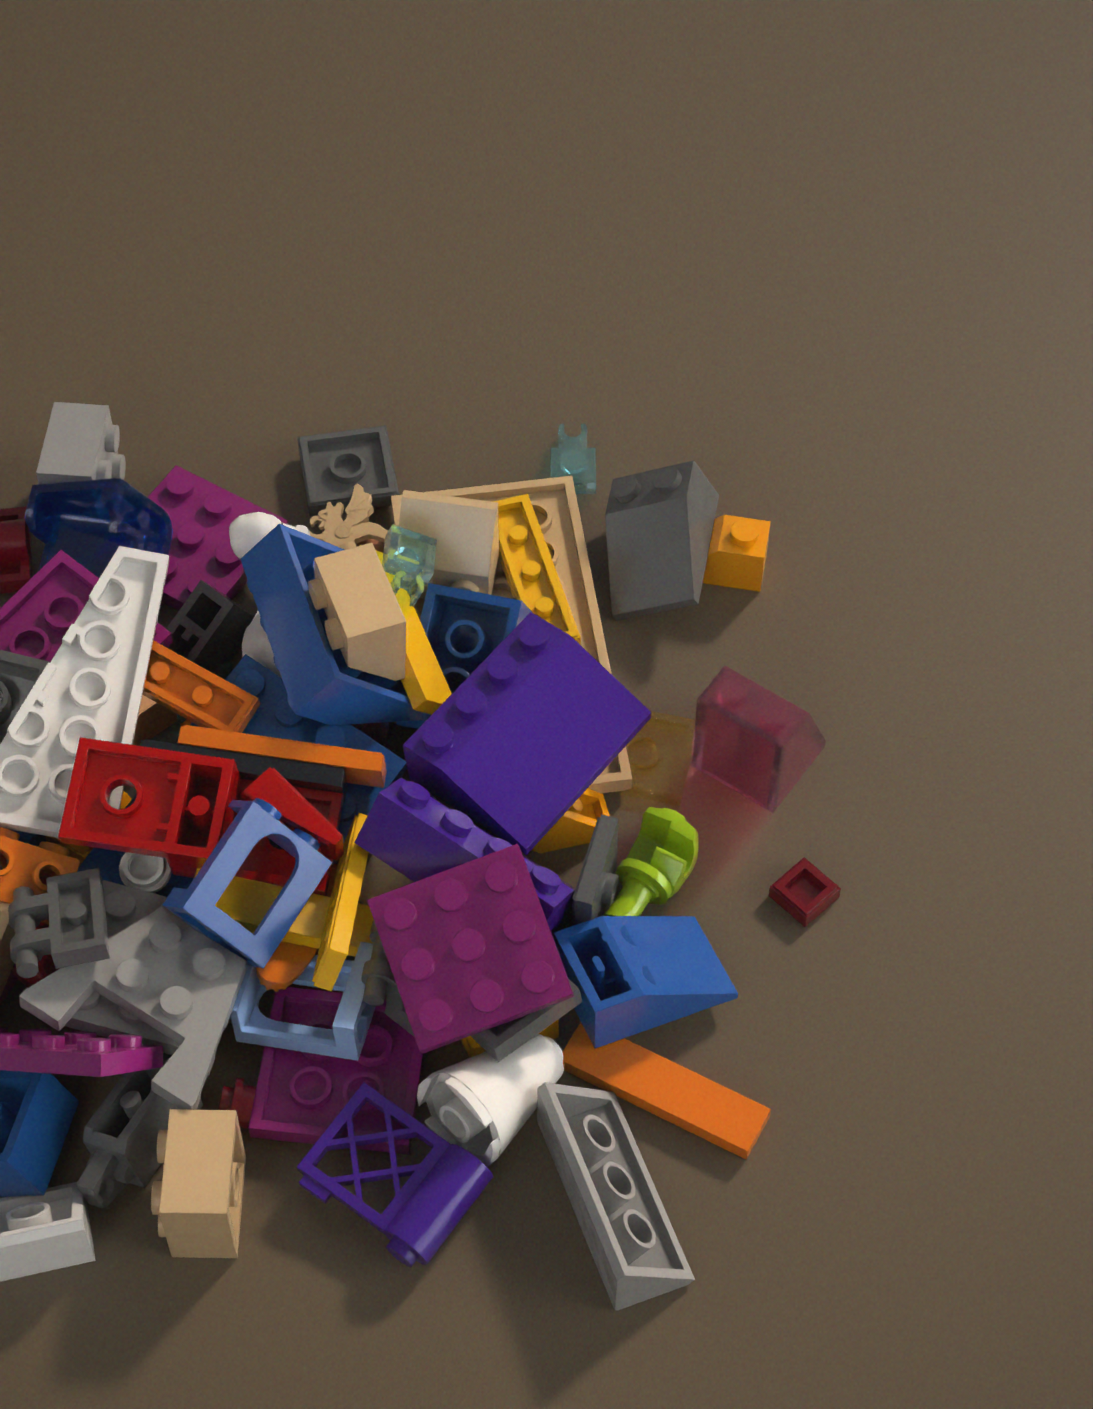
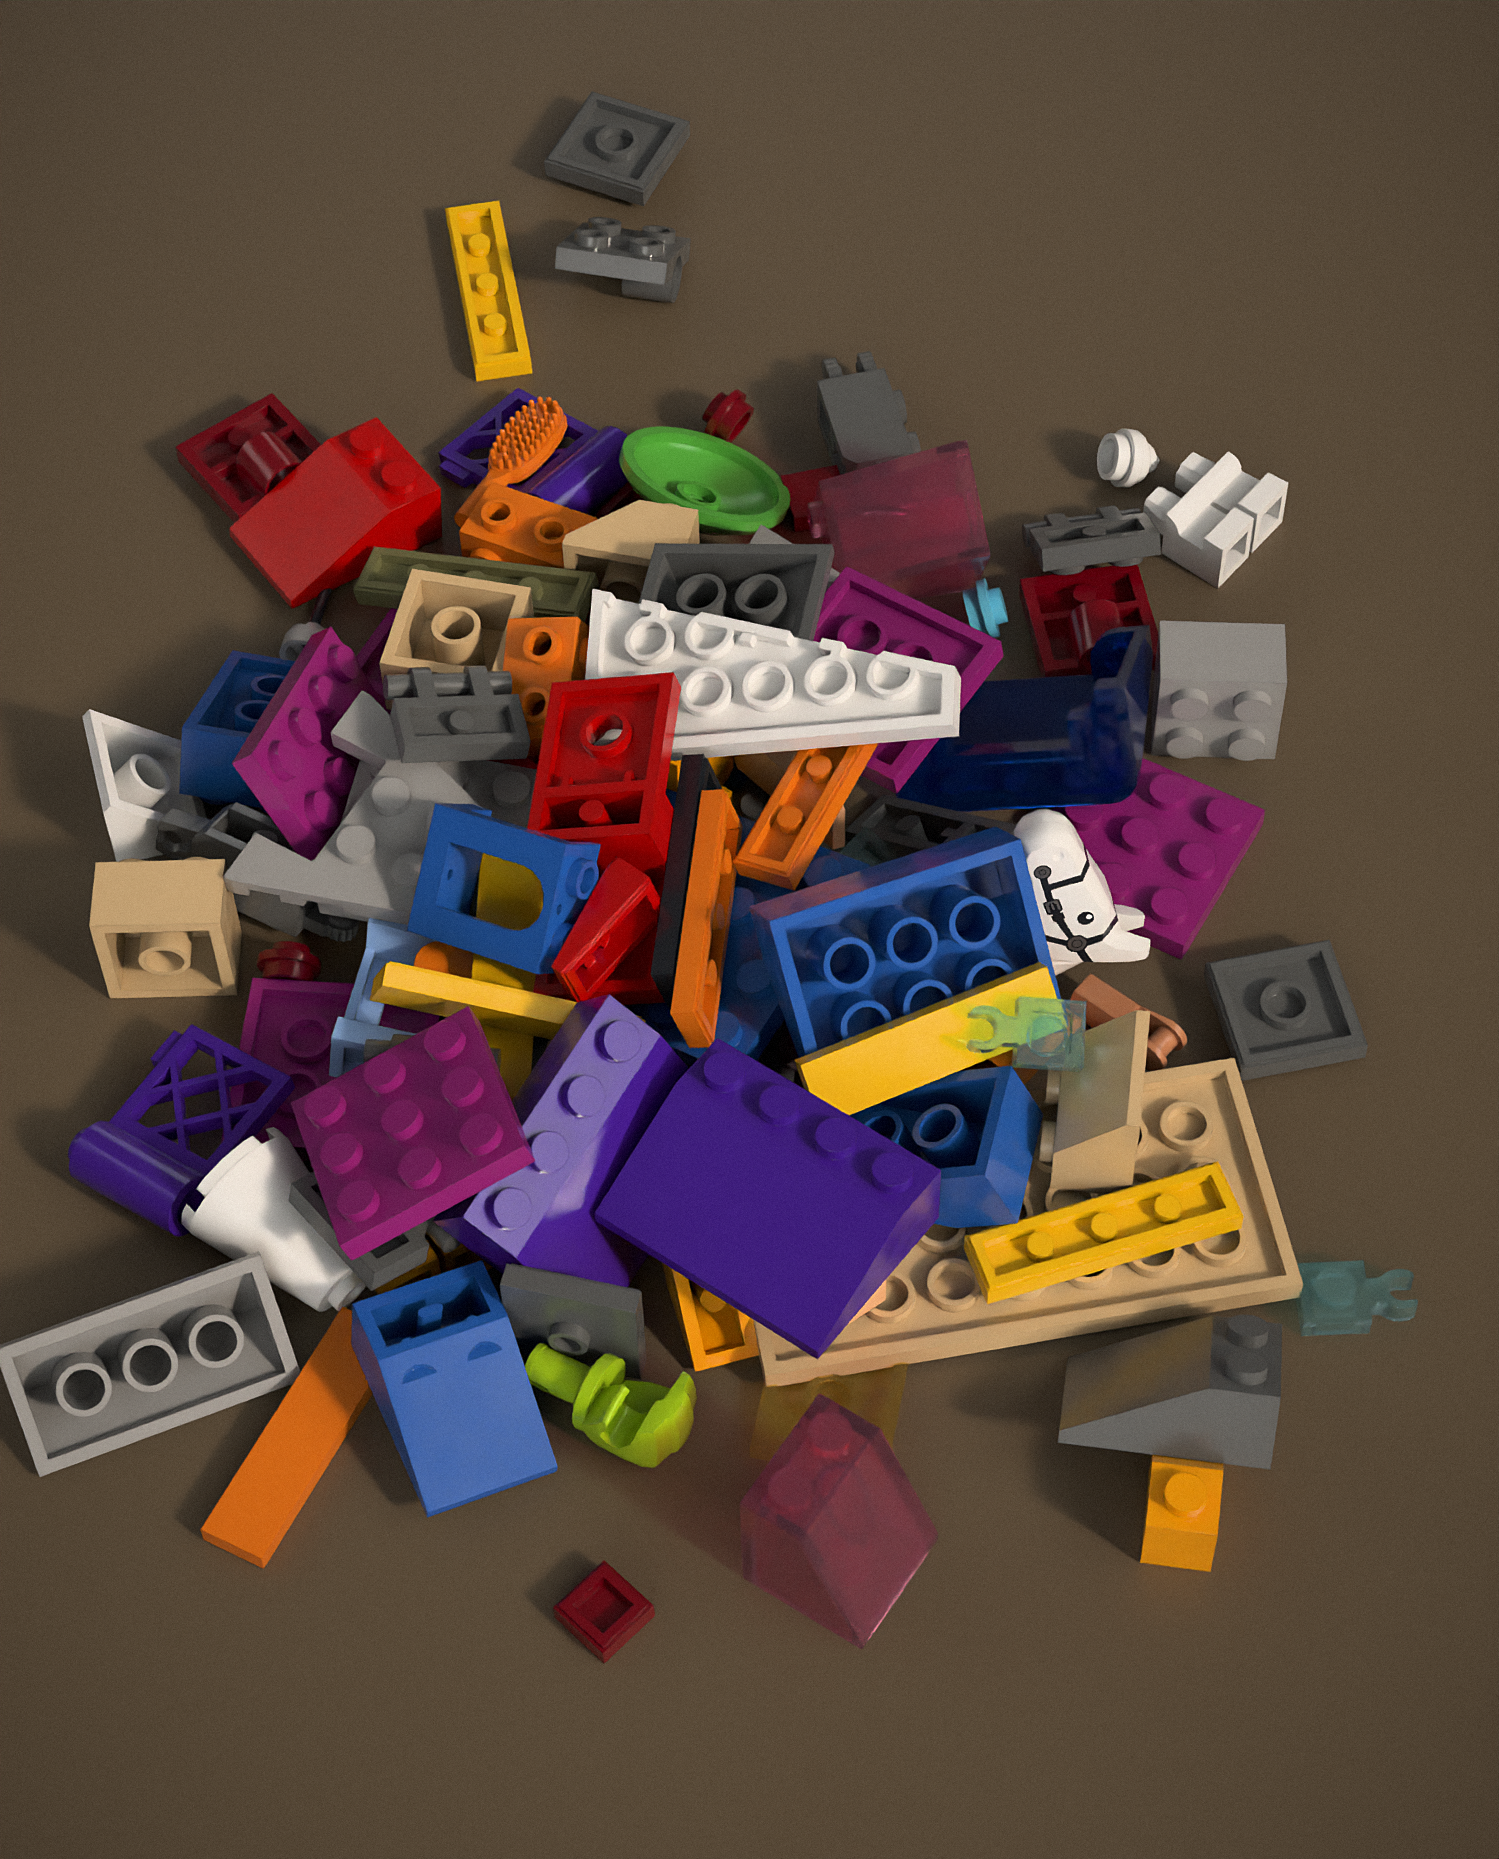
camera: 90 degrees right, 0 degrees up
(356, 525) = (1162, 999): tan piece -> none
(361, 611) = (885, 949): tan slope -> none

